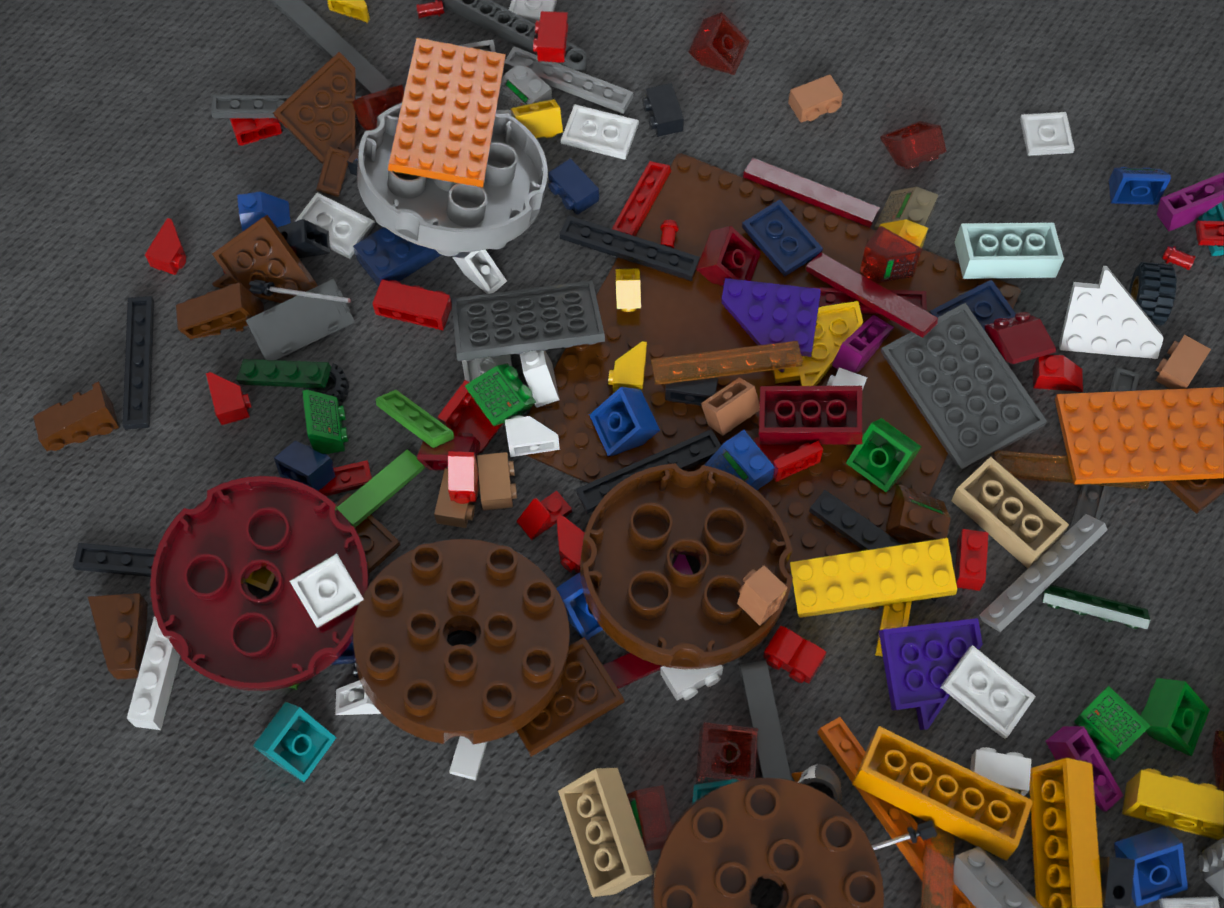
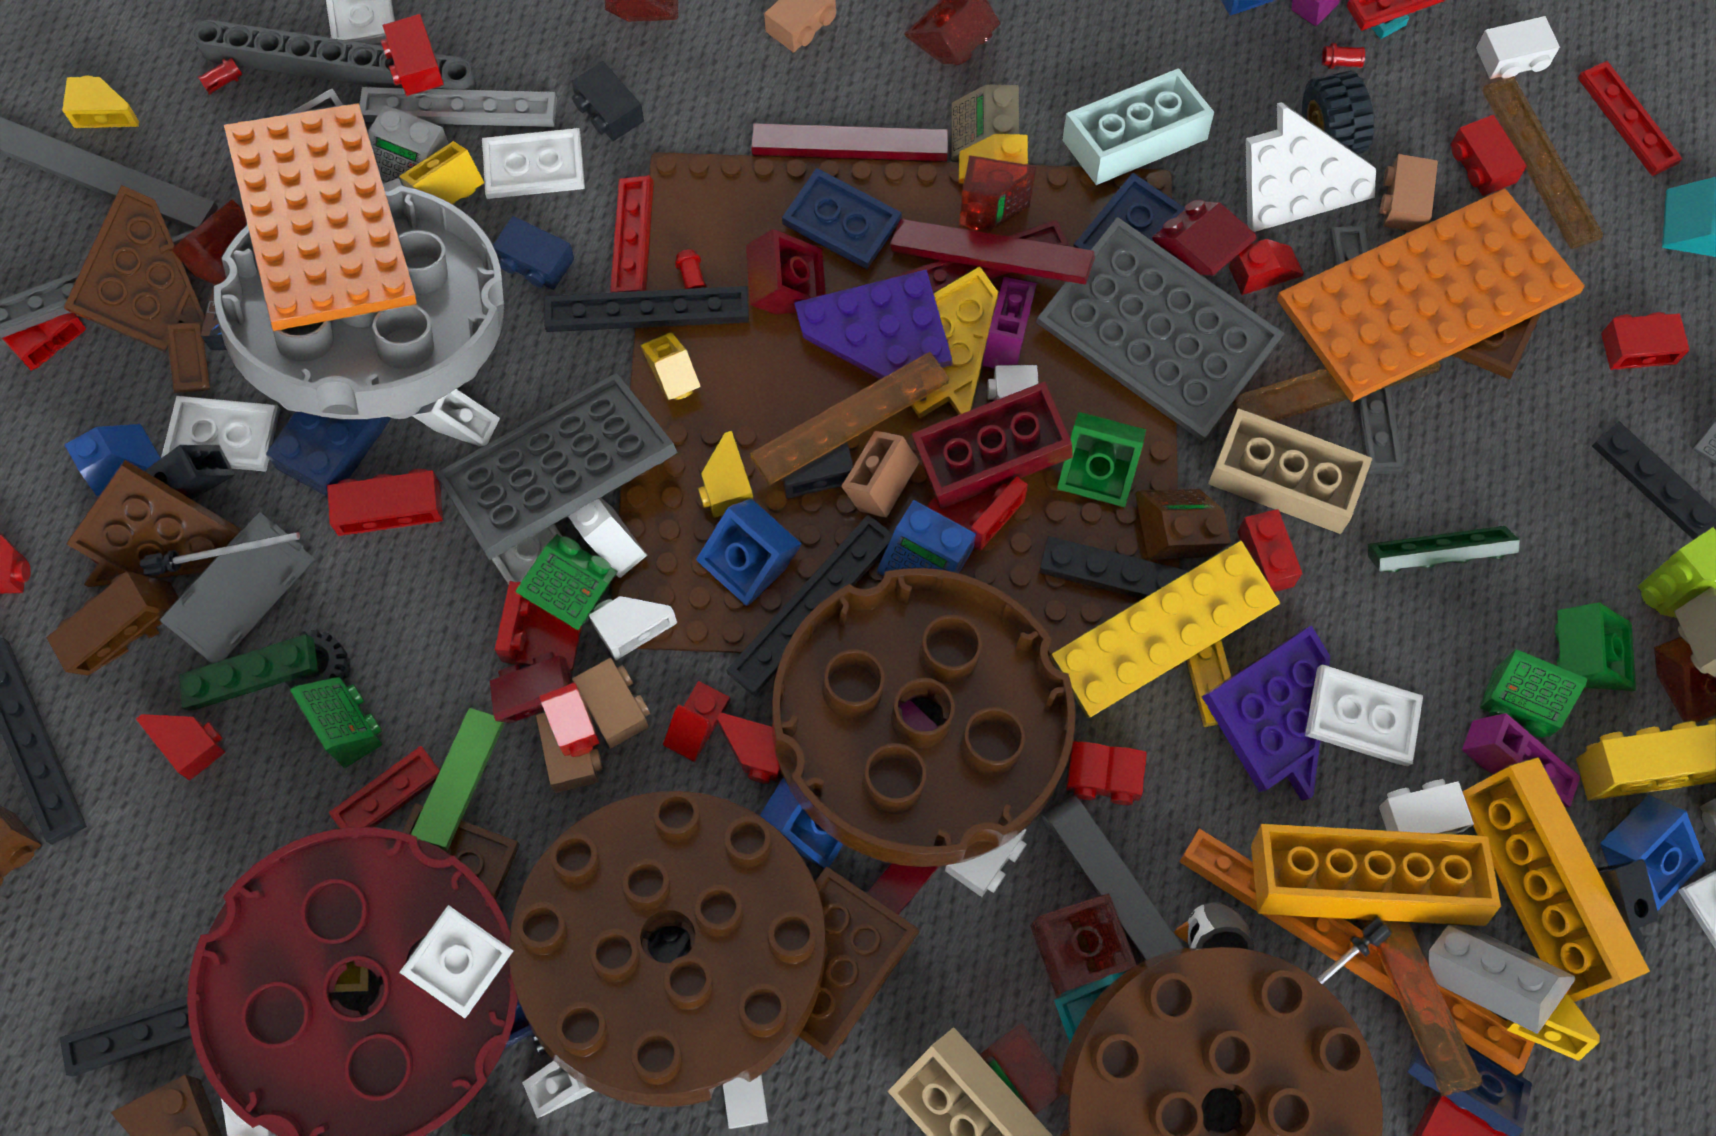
camera: 25 degrees left, 5 degrees up
(305, 465) = (339, 793): dark blue brick -> none
(414, 418) = (463, 663): bright green tile -> none
(761, 594) = (1046, 718): nougat brick -> none
(1043, 572) = (1363, 533): light grey plate -> none

